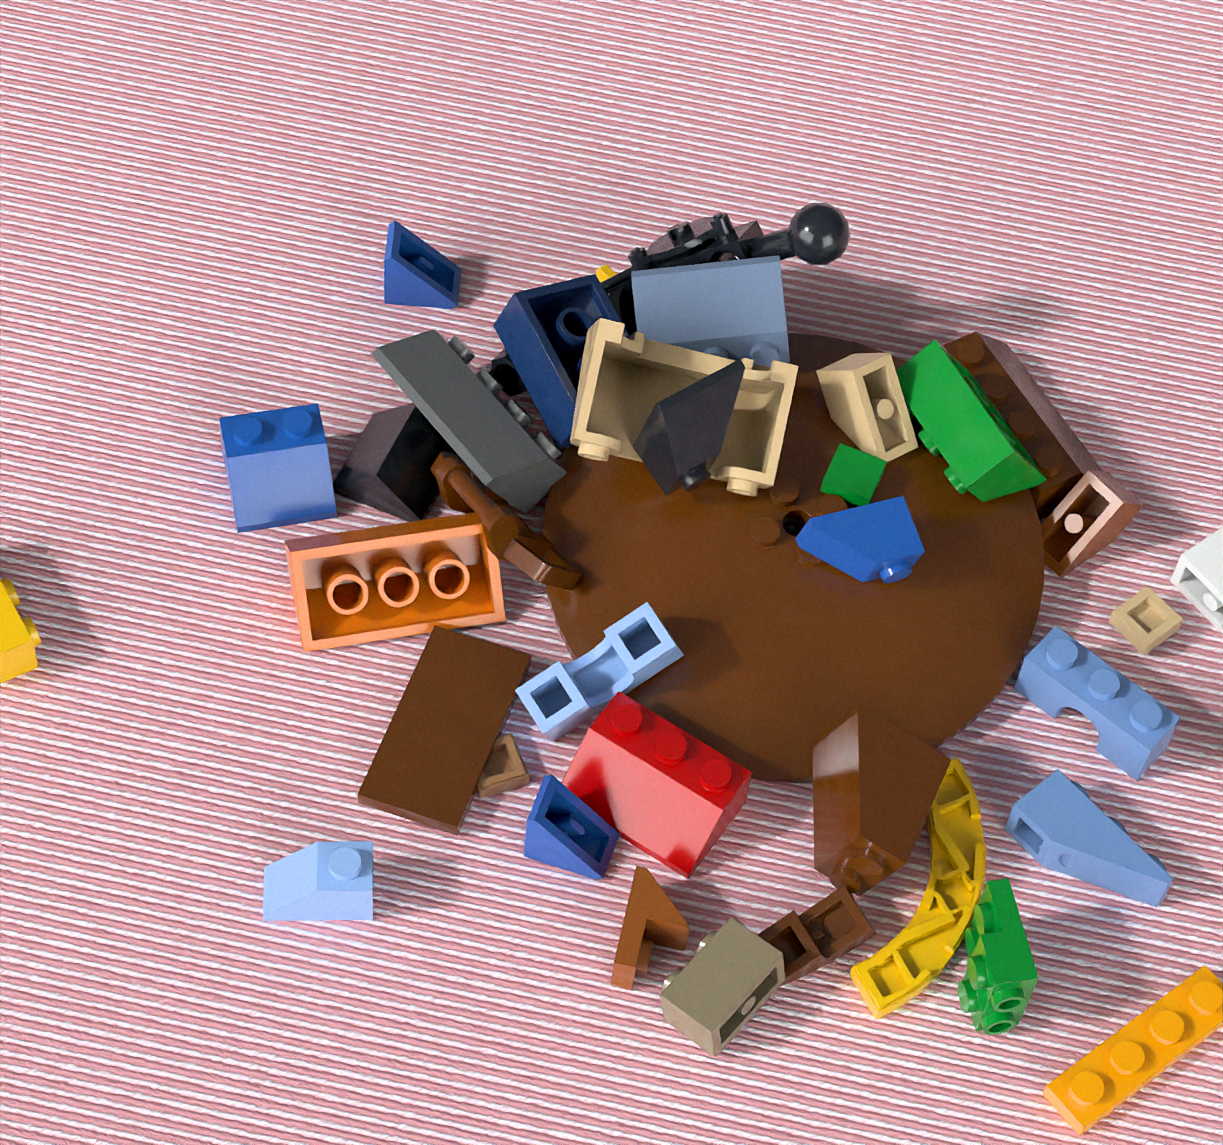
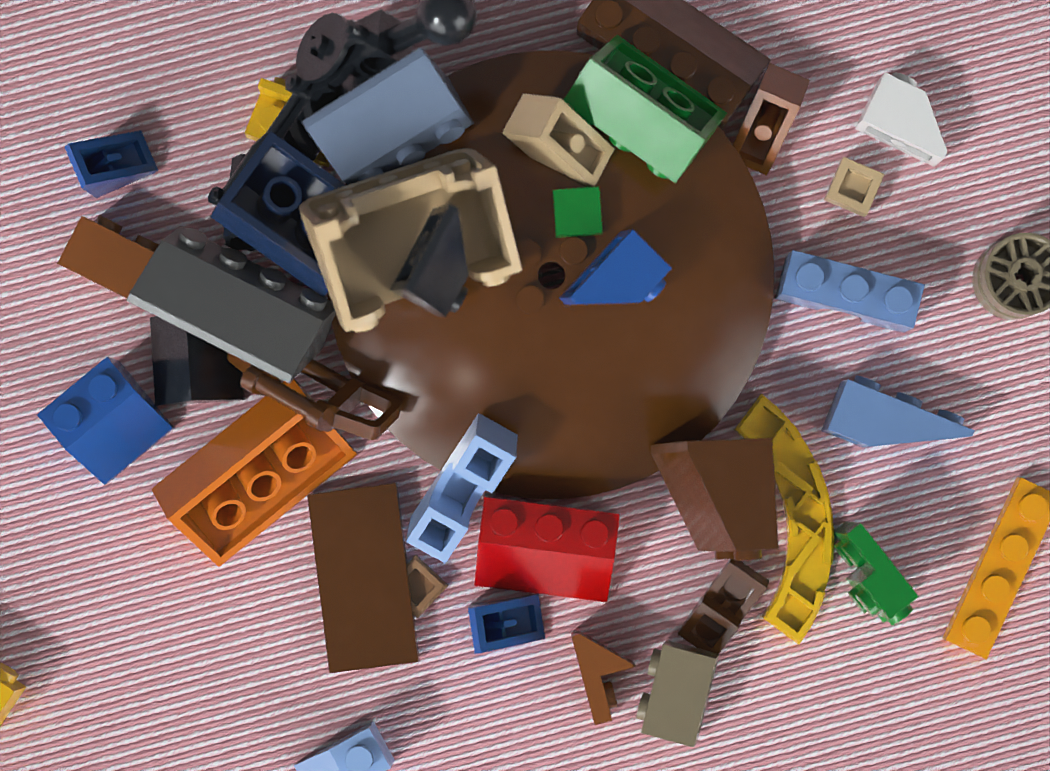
camera: 15 degrees left, 30 degrees up
(351, 335) = (106, 256): none -> dark orange brick

